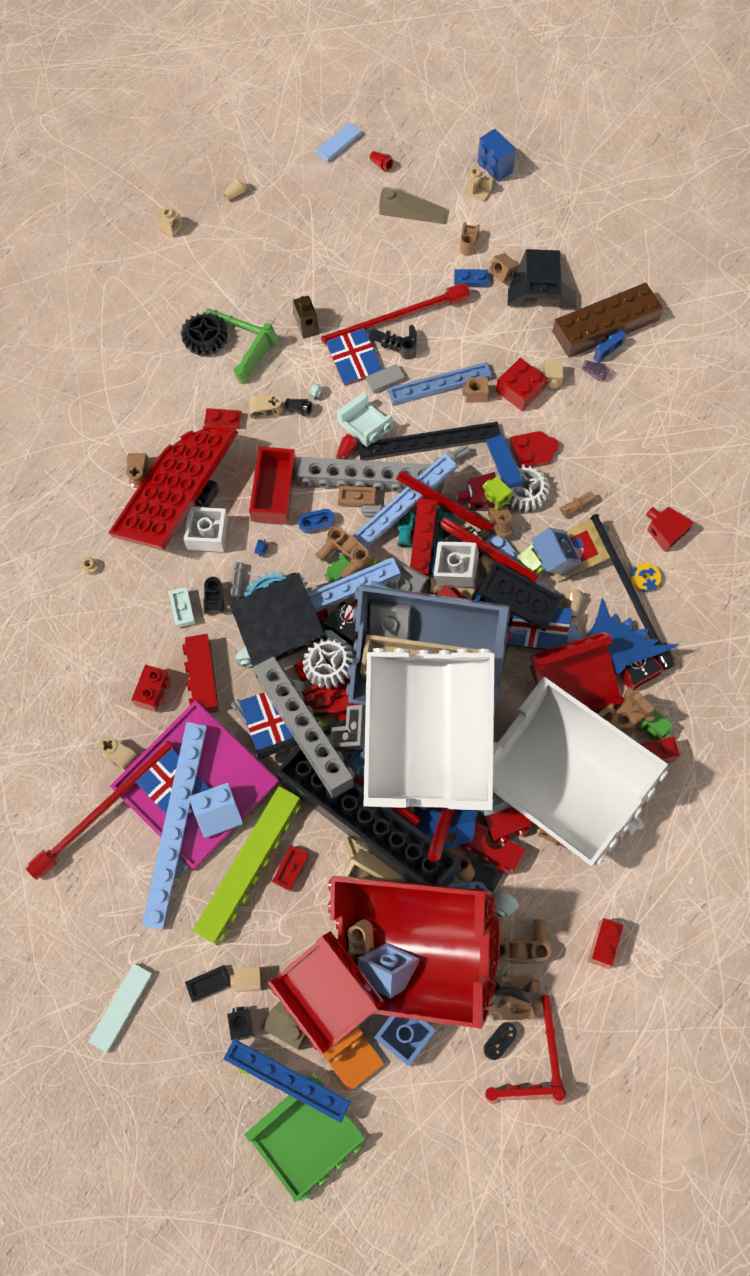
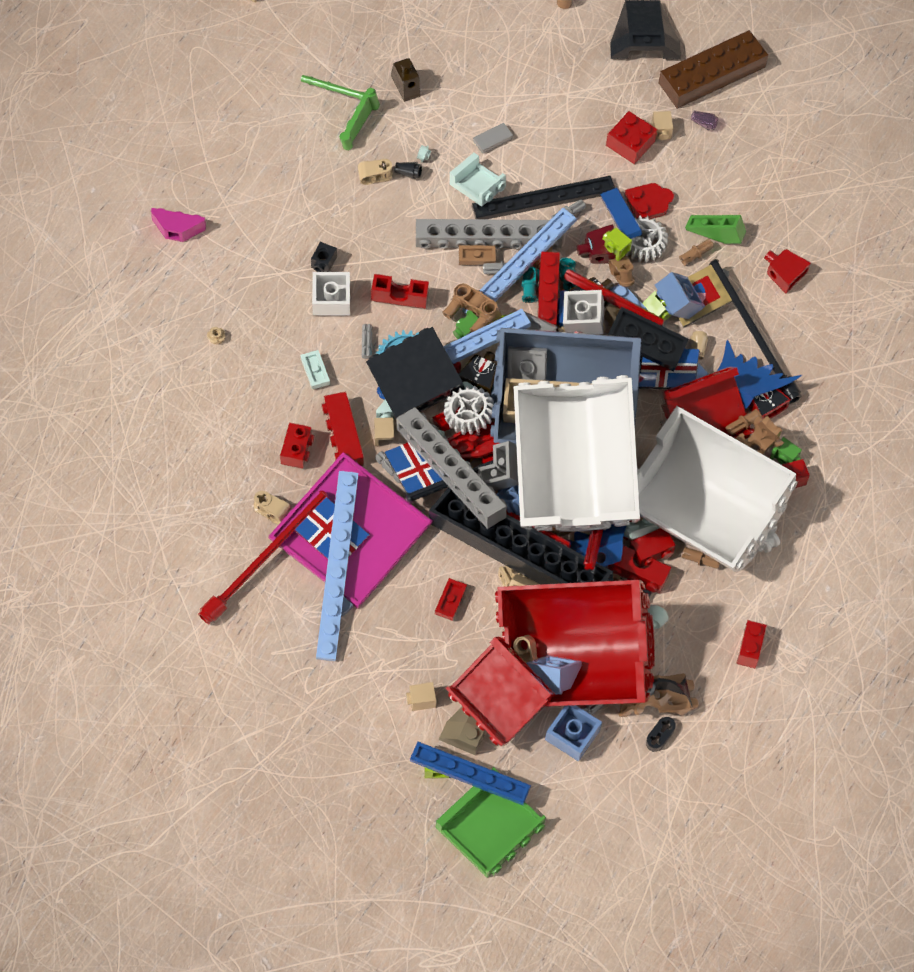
camera: 10 degrees left, 5 degrees down
(67, 451) = (177, 225): none -> dark pink slope
(120, 1008) = (304, 729): light aqua tile -> none
(136, 468) = (252, 239): medium nougat piece -> none
(172, 487) = (293, 254): red plate -> none
(204, 333) = (292, 103): black gear -> none
(208, 983) = (384, 704): black tile -> none
(213, 599) = (346, 359): black piece -> none
(215, 810) = (375, 548): light blue slope -> none
(223, 417) = (332, 185): red plate -> none
(241, 676) = (383, 429): none -> tan panel
(247, 866) = (410, 598): lime brick -> none
(247, 1031) = (420, 725): black brick -> none
(261, 547) = (387, 309): blue plate -> none
(272, 485) = (393, 245): red piece -> none
(286, 534) = (411, 295): none -> red arch
(315, 519) = (438, 280): blue plate -> none
(347, 446) = (462, 207): red cone -> none
(352, 348) = (456, 108): flag -> none
(353, 1059) = (526, 755): orange bracket -> none
(406, 345) = (503, 102): black piece -> none
(437, 384) = (549, 140): medium blue tile -> none
(443, 501) = (565, 254): red axle -> none
(471, 277) = (571, 32): blue plate -> none
(478, 384) = (592, 142): medium nougat brick -> none
(503, 267) = (603, 20): medium nougat brick -> none
(523, 950) = (676, 656): medium nougat piece -> none
(556, 1091) = (698, 771): red piece -> none
(605, 481) = (722, 228): none -> bright green slope
(606, 348) = (721, 91): blue plate -> none
(613, 690) = (743, 422): none -> medium nougat axle
(642, 584) = (764, 324): yellow piece -> none

